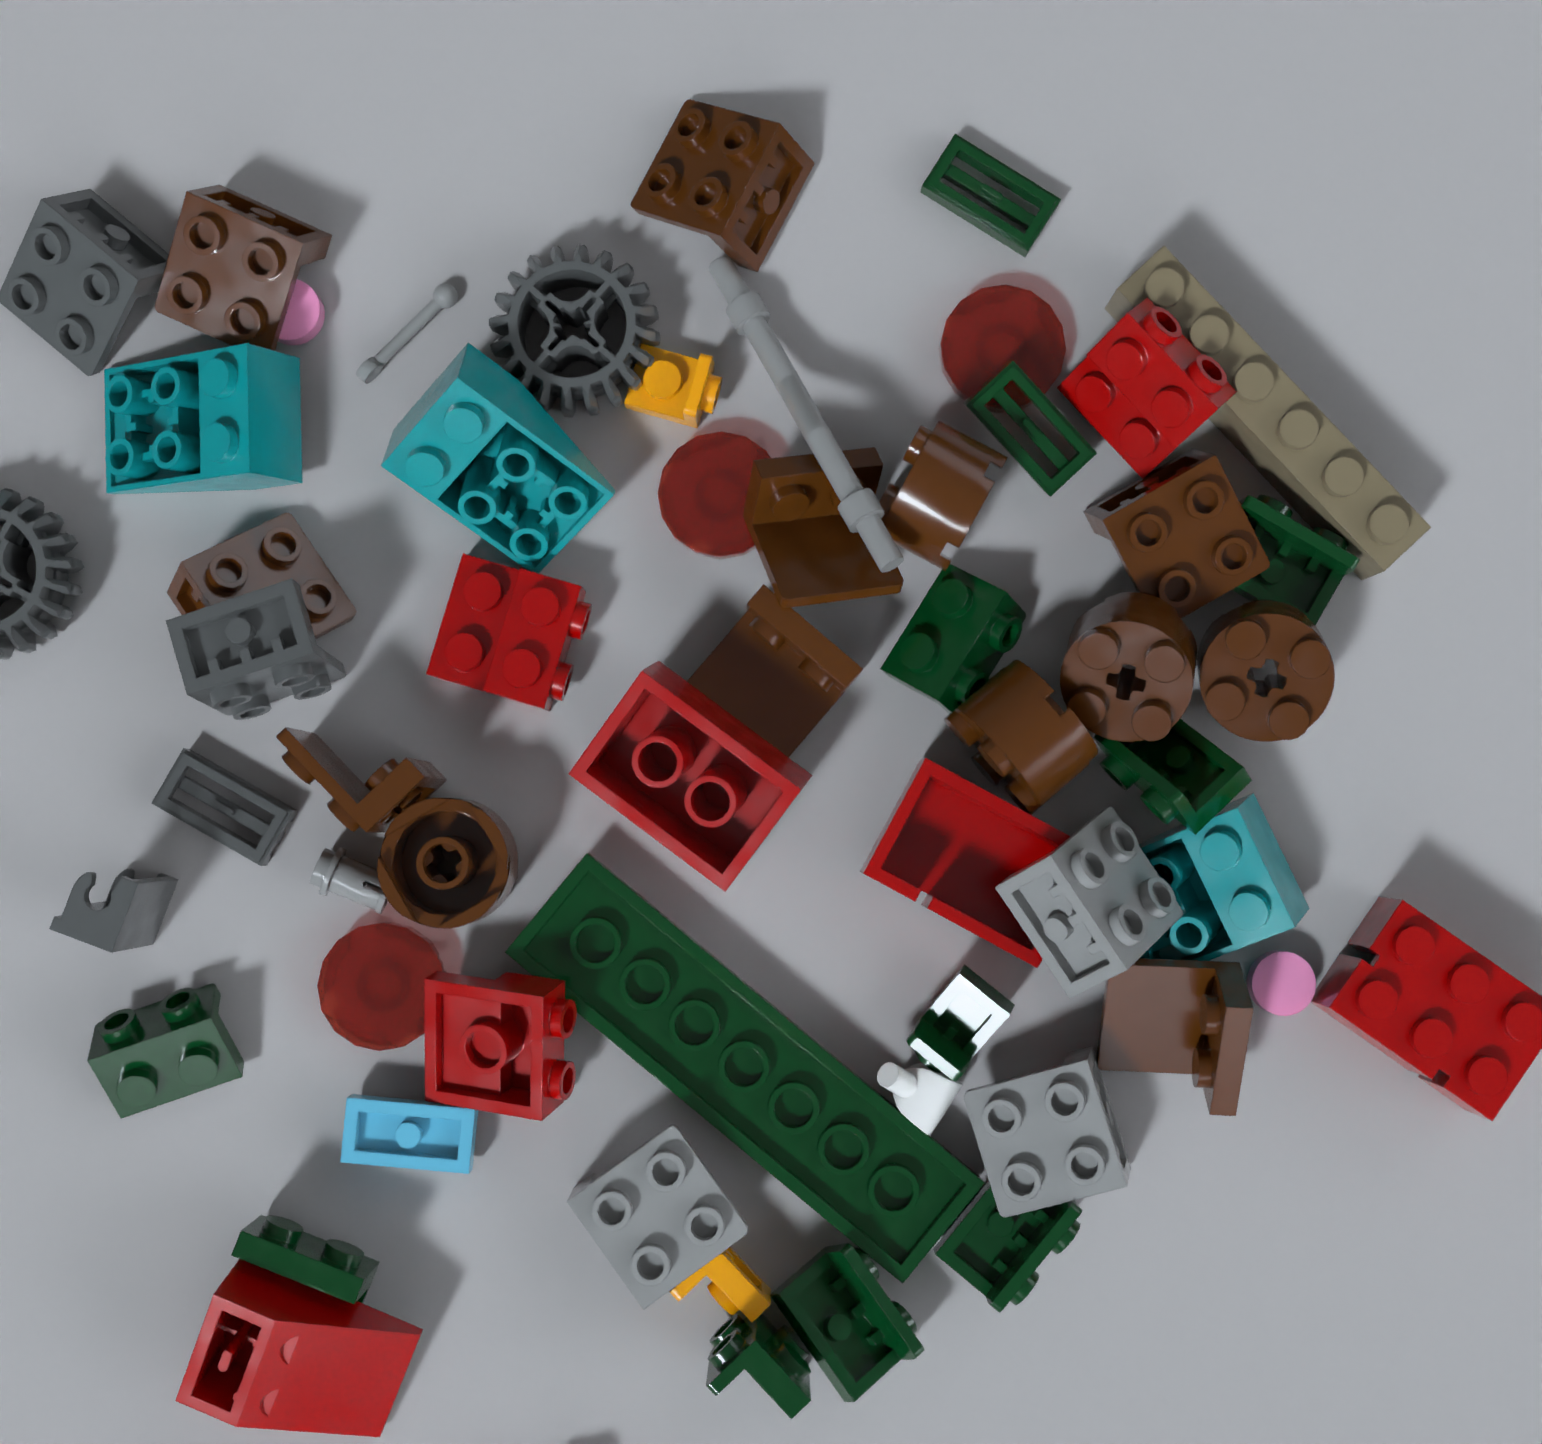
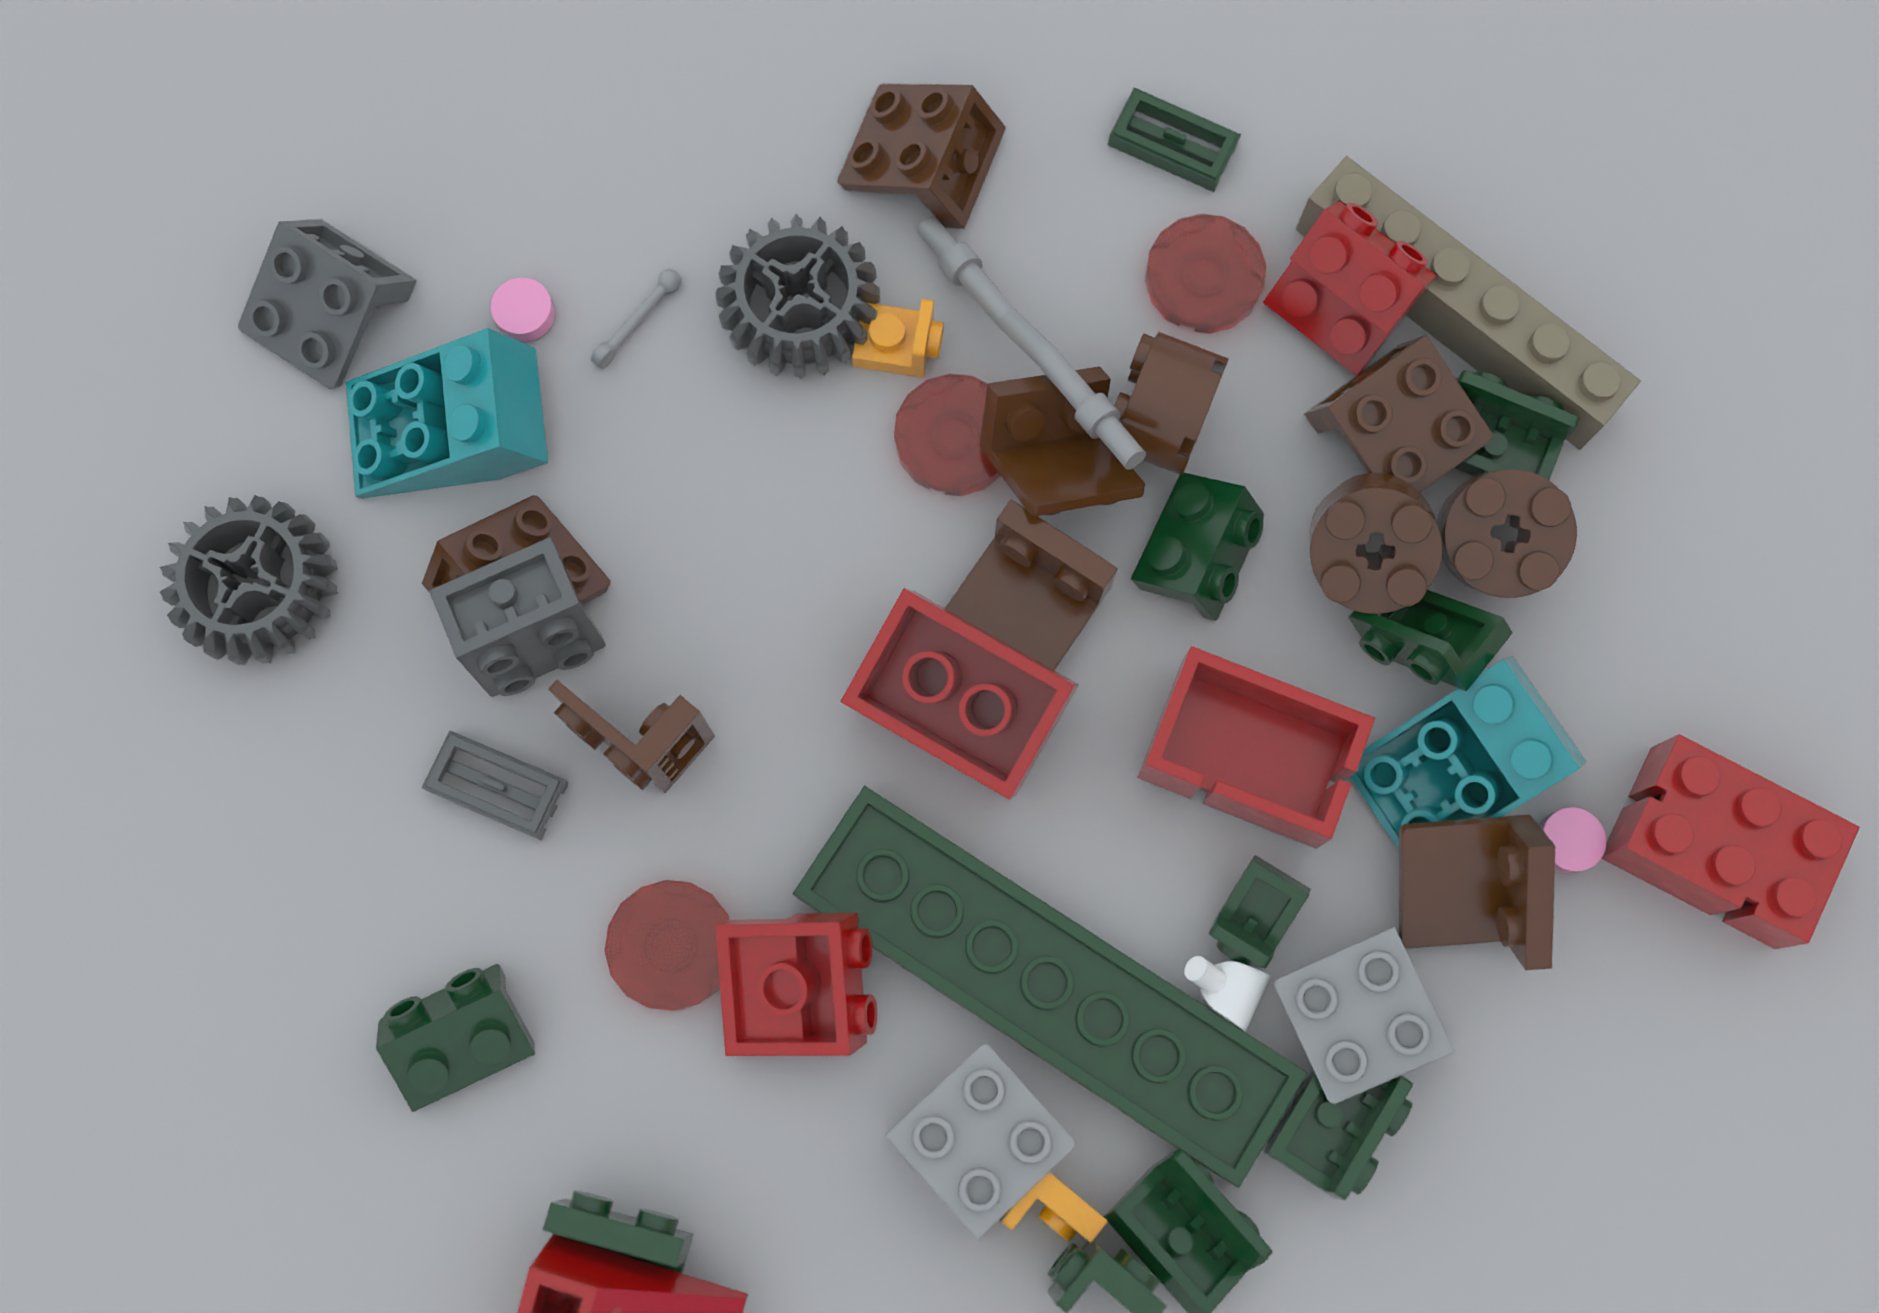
camera: 10 degrees left, 10 degrees down
(126, 918) = (407, 895): dark grey hinge -> none
(235, 266) = (465, 271): reddish brown bracket -> none
(348, 879) = (630, 841): light grey pin -> none
(408, 1134) = (712, 1092): medium azure plate -> none
(413, 850) = (689, 807): reddish brown brick -> none
(496, 461) = (738, 420): teal slope -> none
(509, 632) = (764, 584): red plate -> none
(994, 389) = (1256, 318): dark green tile -> none
(1022, 736) = (1282, 618): reddish brown brick -> none
(1091, 903) = (1374, 767): light grey bracket -> none

